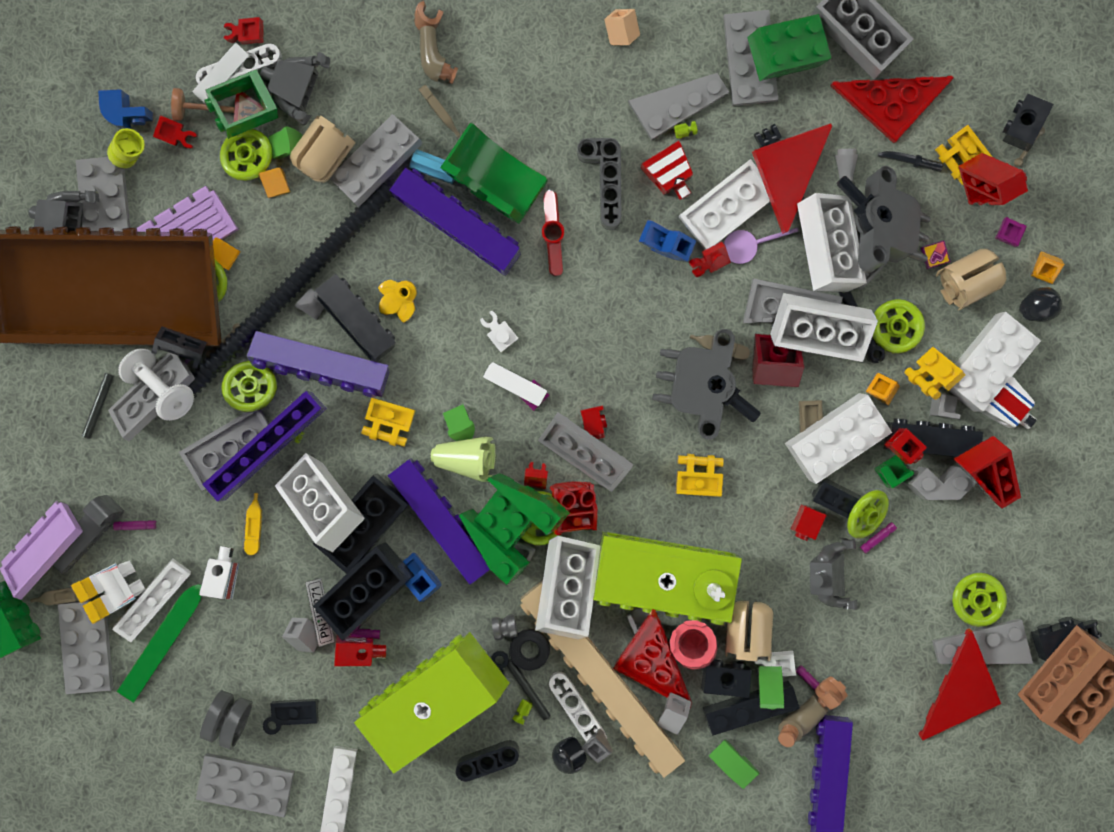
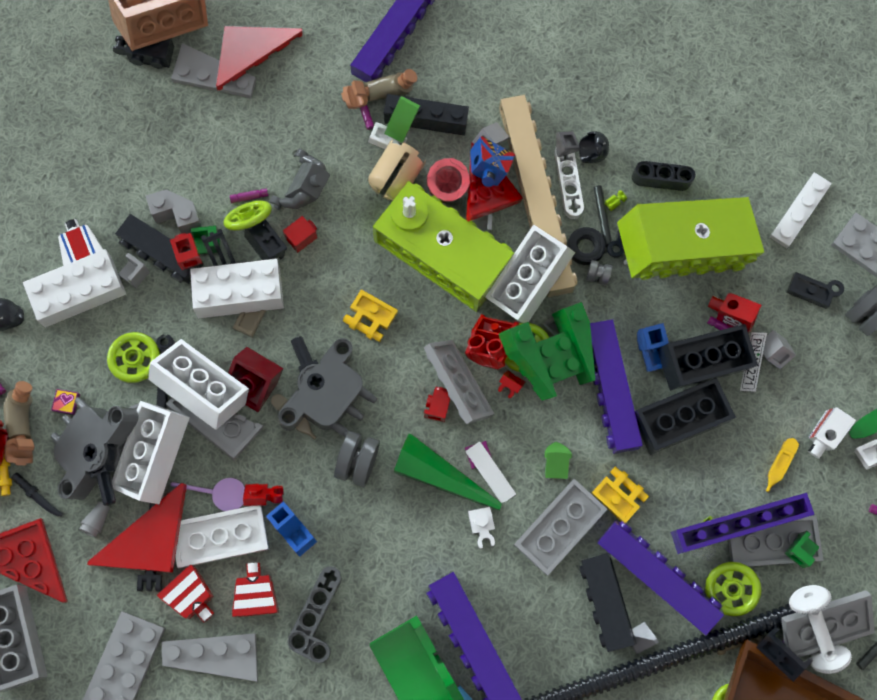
camera: 160 degrees left, 15 degrees down
(201, 451) = (802, 550): none -> green panel
(319, 502) = (714, 449): white brick -> none
(395, 301) = (563, 601): yellow plate -> none
(428, 365) = (560, 527): none -> light grey plate
(466, 457) = (565, 428): yellowish green cone -> none
(553, 247) = (383, 605): red piece -> none
(576, 359) = (426, 466): none -> green wedge
(646, 332) = (354, 458): none -> dark grey wheel
(662, 686) = (490, 161): none -> blue torso
(683, 130) = (222, 627): lime piece -> none
(727, 141) = (188, 595): none -> torso
(734, 764) = (462, 79): bright green slope -> none
(738, 684) = (428, 136): black brick -> none
(789, 47) = (85, 652): green brick -> none
(883, 388) = (175, 312): light orange slope -> none
(885, 471) = (213, 237): none -> black tile
(939, 368) = (119, 301): yellow plate -> none
(971, 218) = (16, 419): none -> piece
(972, 278) = (48, 351): tan cylinder -> none
(977, 618) = (185, 97): lime plate -> none
(993, 471) = (127, 198): red wedge -> none

